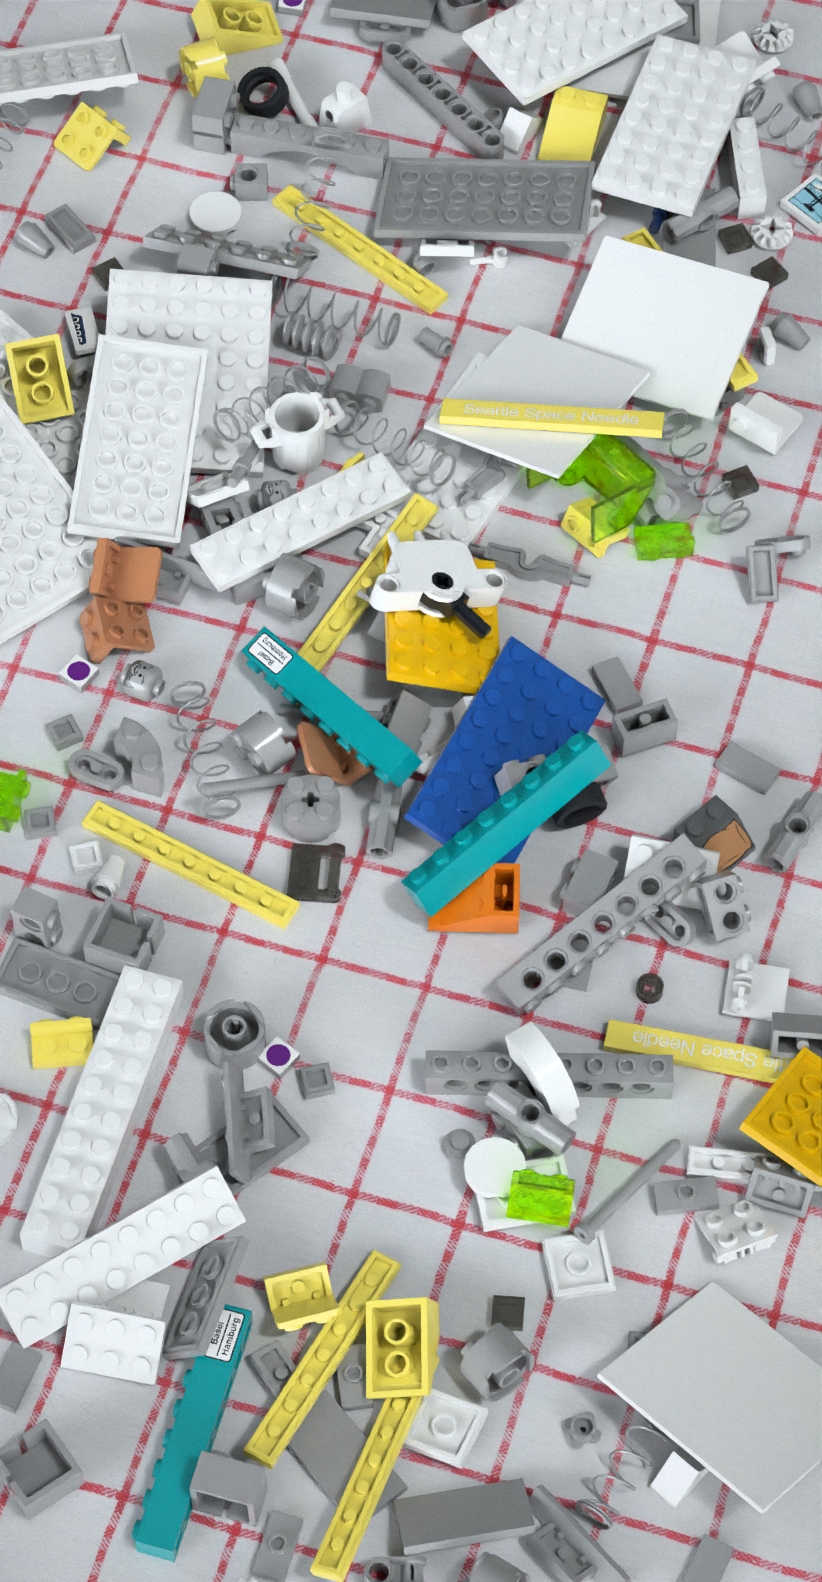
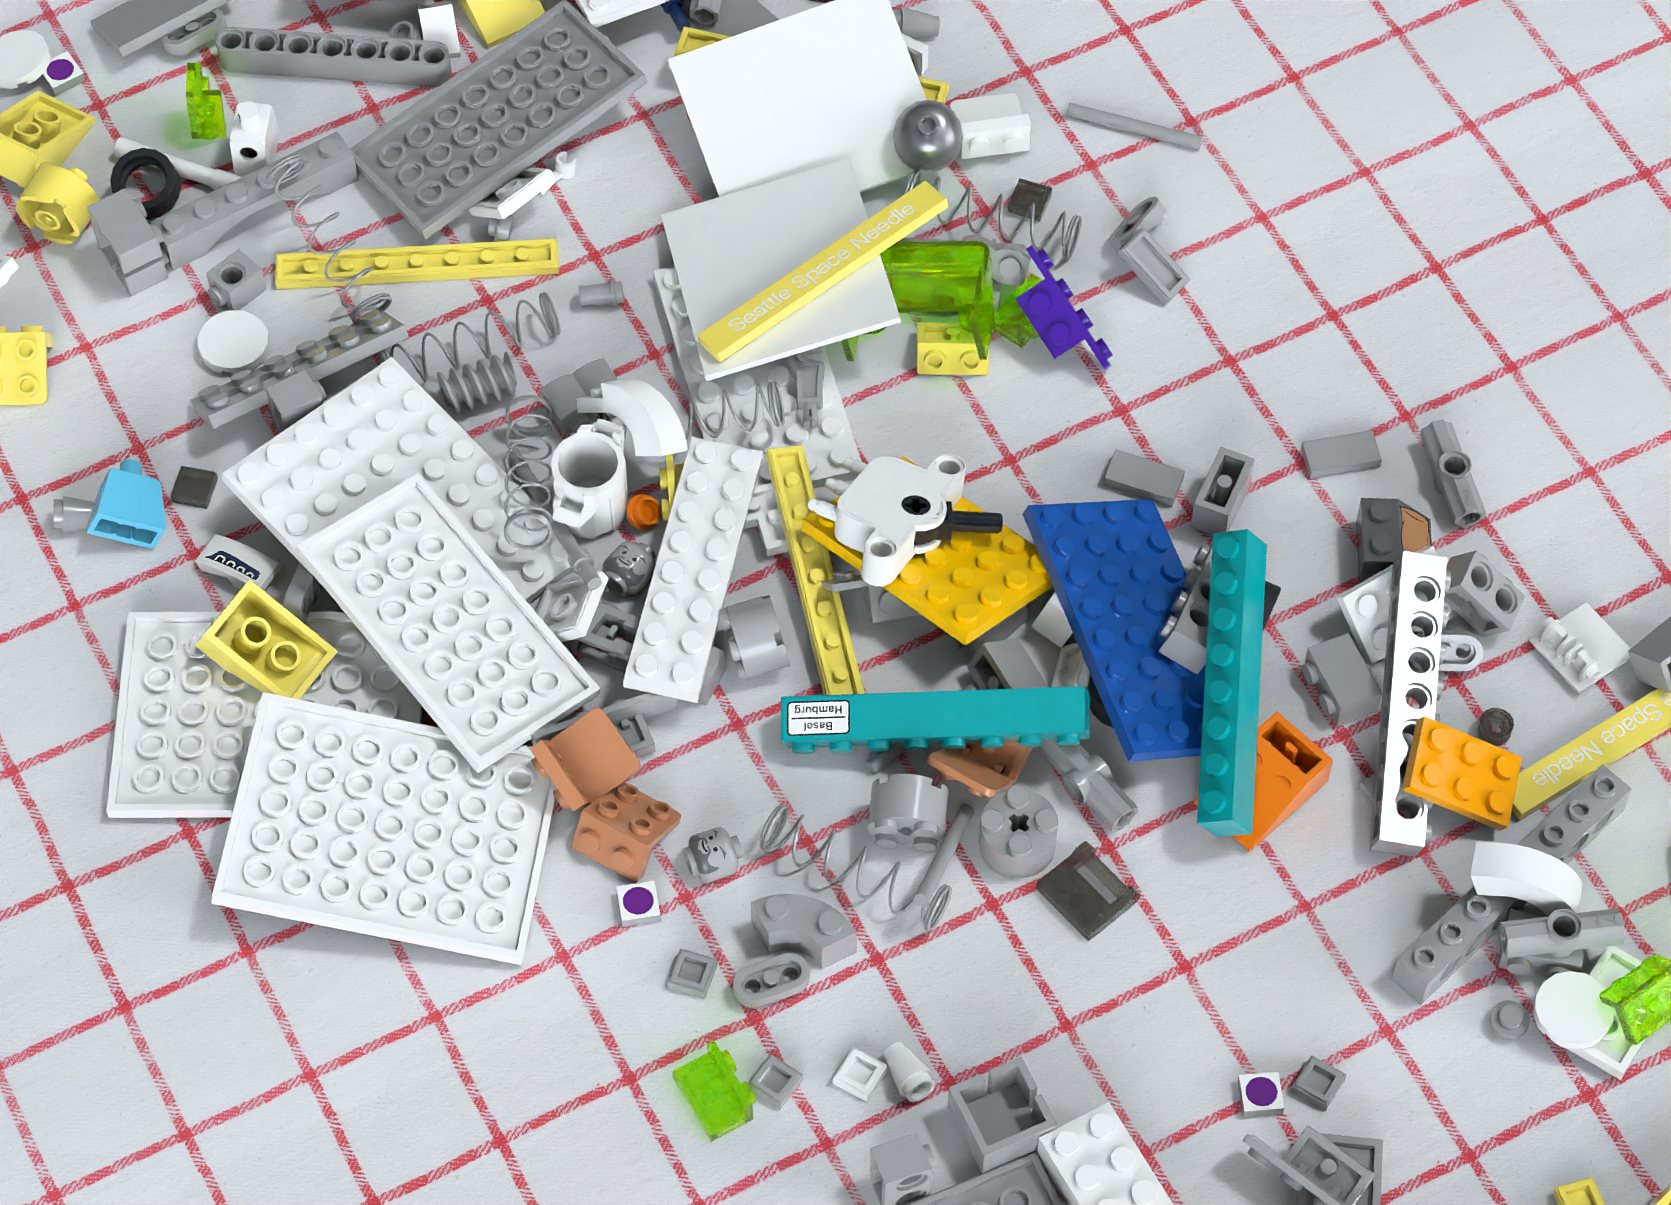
camera: 45 degrees left, 0 degrees up
(58, 253) = (129, 507): none -> medium azure torso
(69, 228) = (84, 472): light grey tile -> none
(191, 864) = (962, 990): light yellow tile -> none
(234, 1033) = (1203, 1129): light grey brick -> none
(317, 472) = (643, 512): none -> orange plate
(336, 66) = (204, 106): none -> clear neon green bracket
(359, 415) = (643, 411): none -> white arch
(543, 568) = (951, 426): light grey piece -> none
(585, 988) = (1462, 773): none -> light orange plate
(665, 552) = (1054, 315): none -> dark purple bracket
(707, 393) = (927, 136): none -> flat silver cylinder

